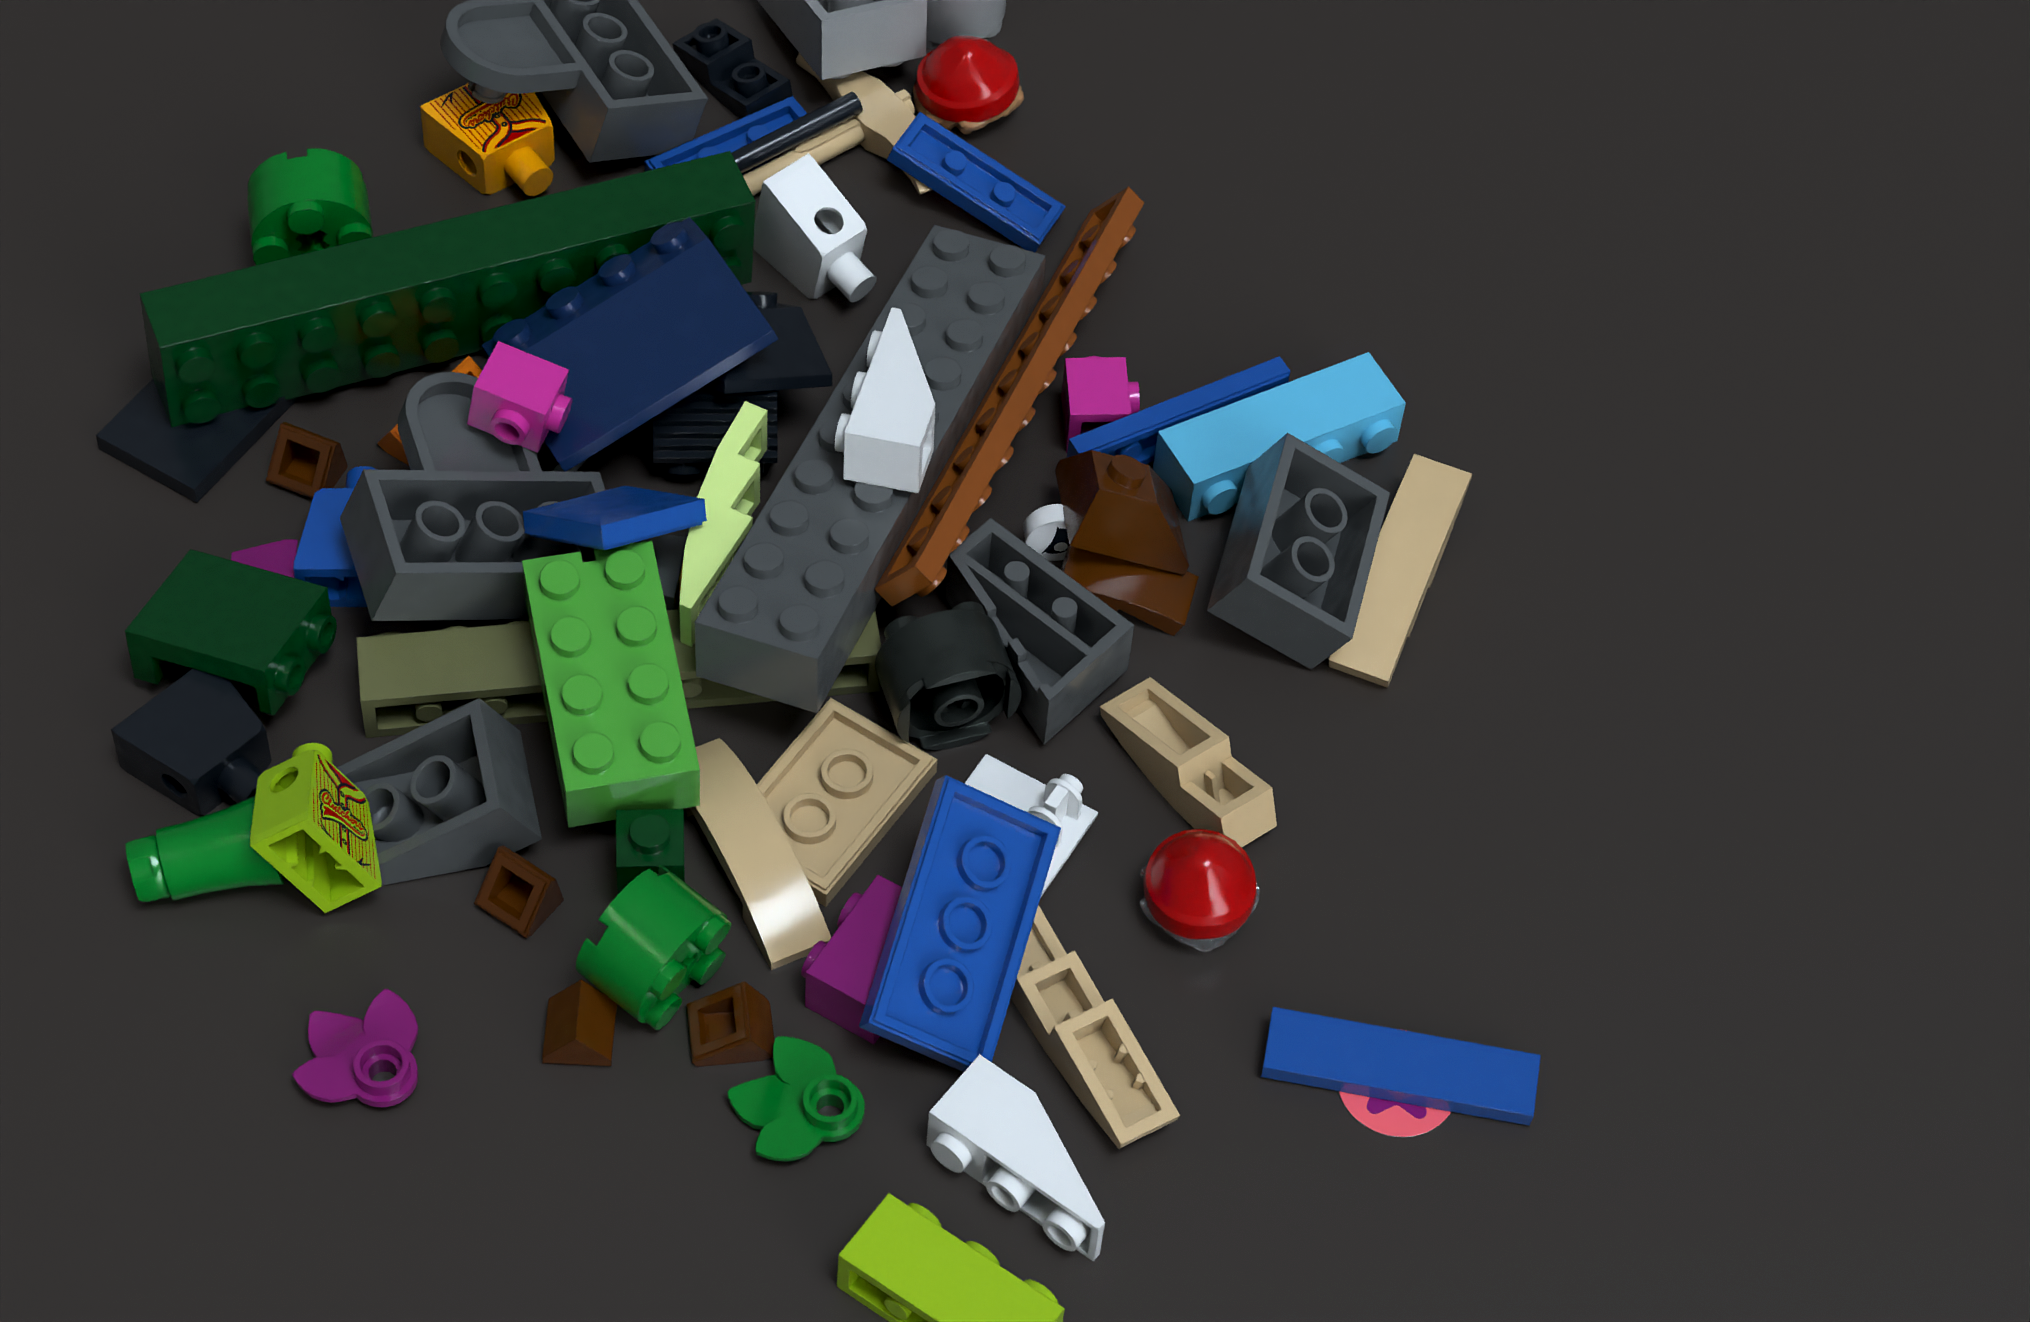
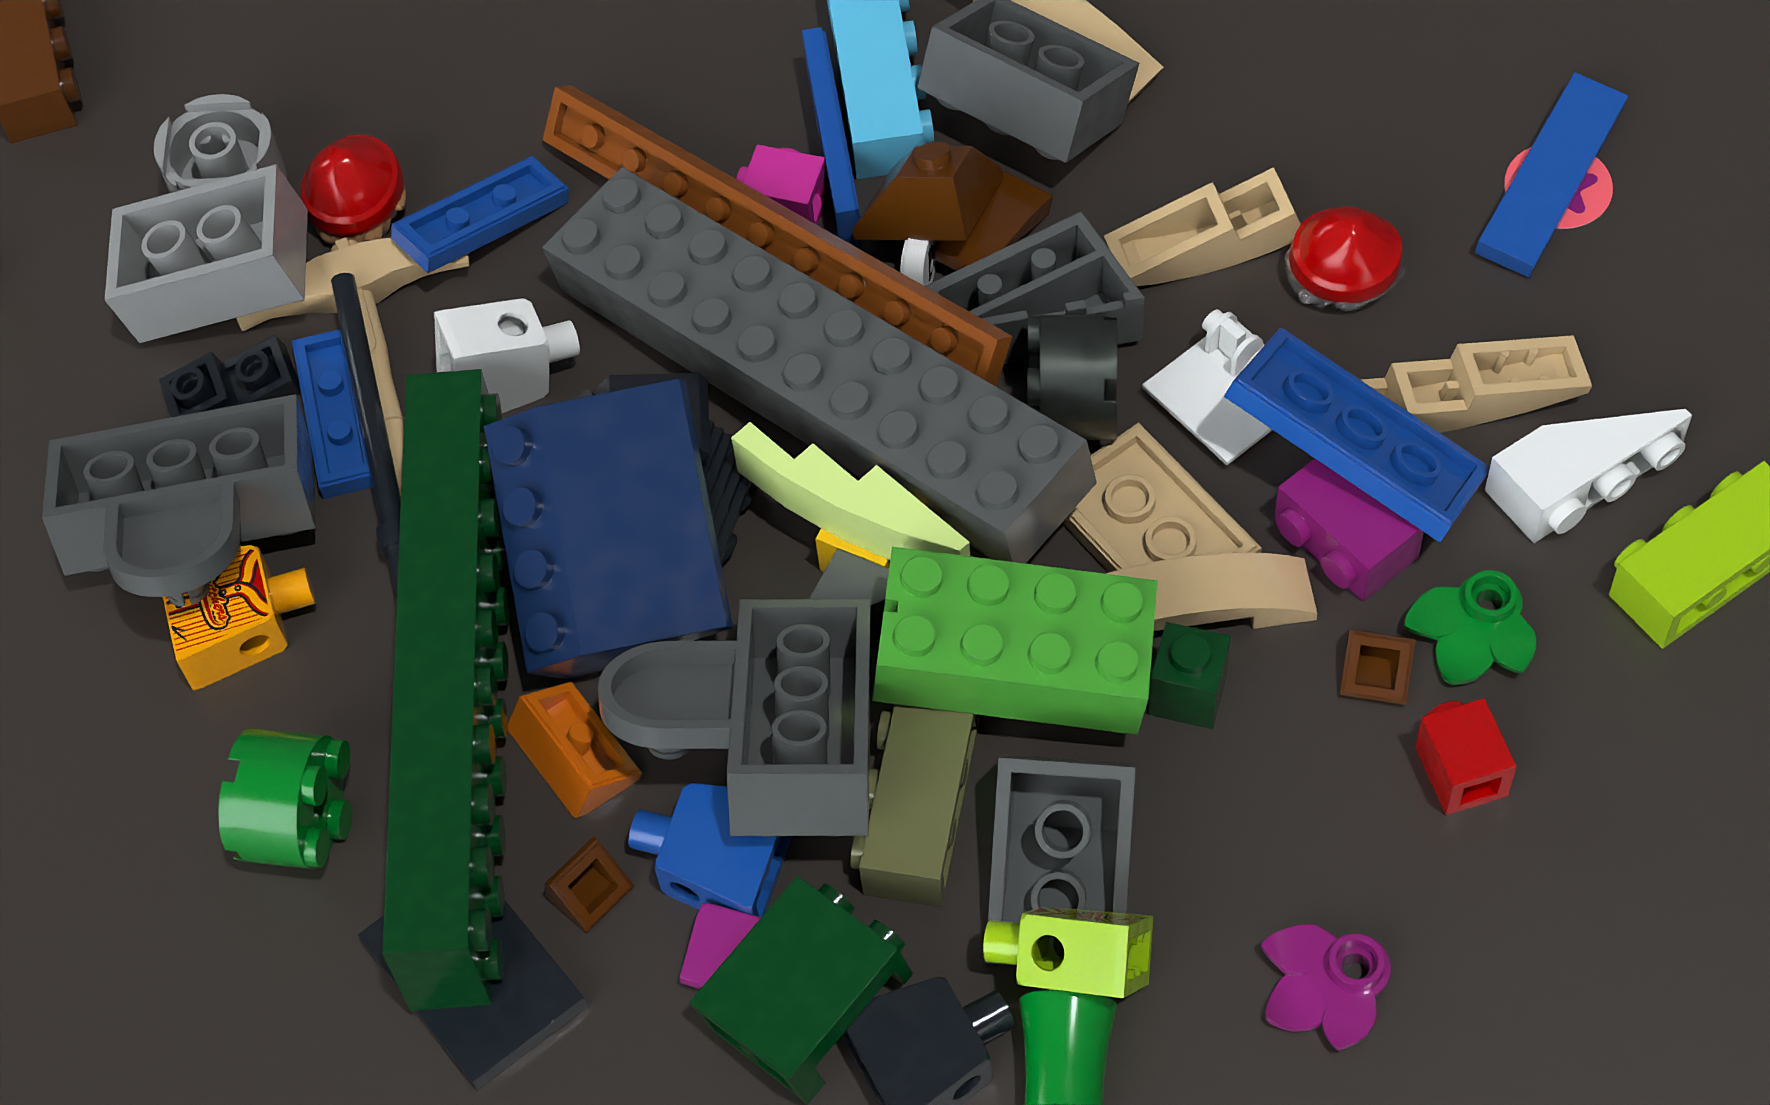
camera: 60 degrees left, 5 degrees up
(518, 892) = (1182, 804): reddish brown slope -> none
(519, 398) = (663, 625): dark pink brick -> none
(580, 1027) = (1345, 790): reddish brown slope -> none
(614, 517) = (840, 578): blue tile -> none
(636, 1113) = (1464, 755): none -> red brick
(654, 946) = (1303, 687): green brick -> none
(893, 414) = (820, 303): white slope -> none

